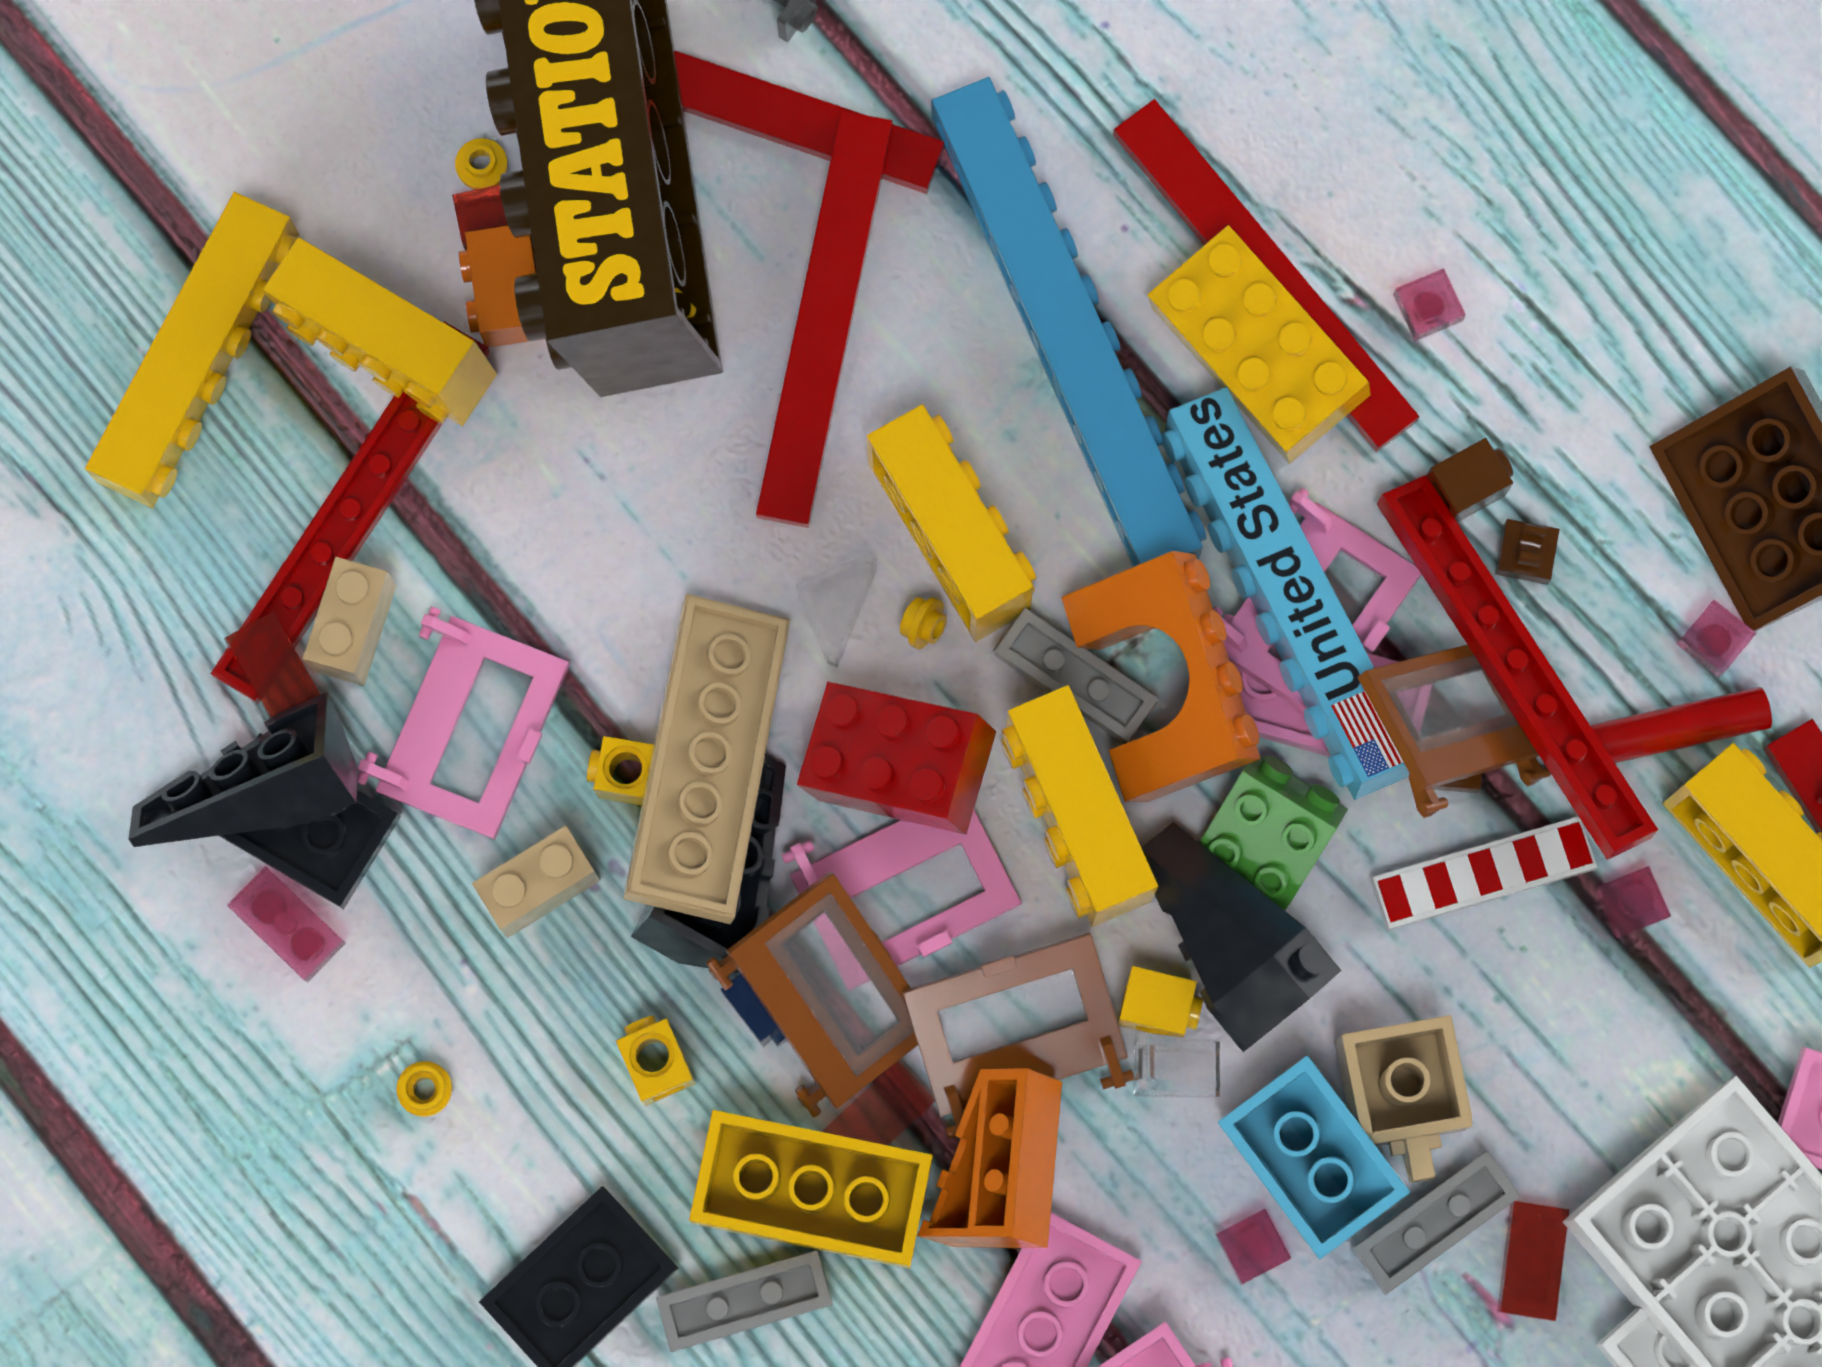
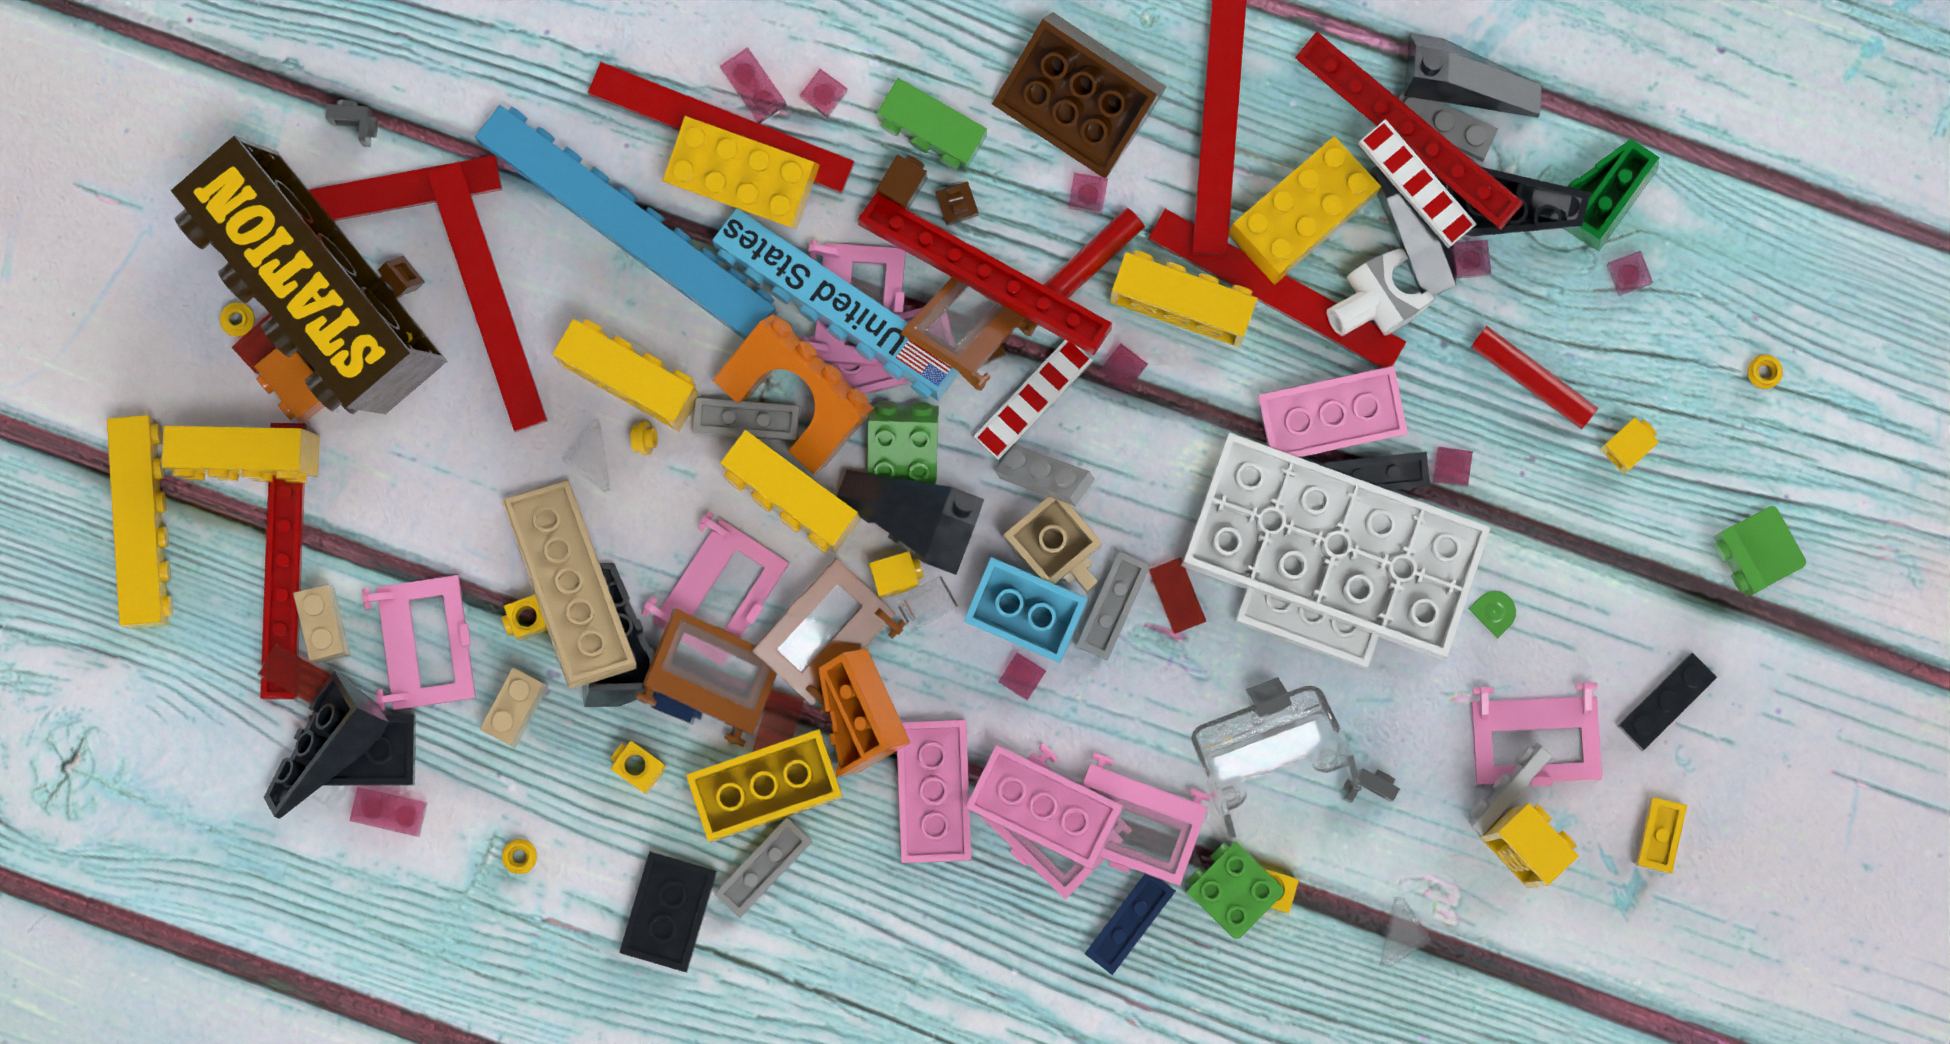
camera: 30 degrees left, 5 degrees up
(726, 228) = (400, 276): none -> reddish brown tile
(897, 757) = (673, 523): red brick -> none
(1340, 242) = (753, 85): none -> clear pink plate
(1445, 986) = (1044, 475): none -> light grey plate
(1552, 427) = (931, 125): none -> bright green brick

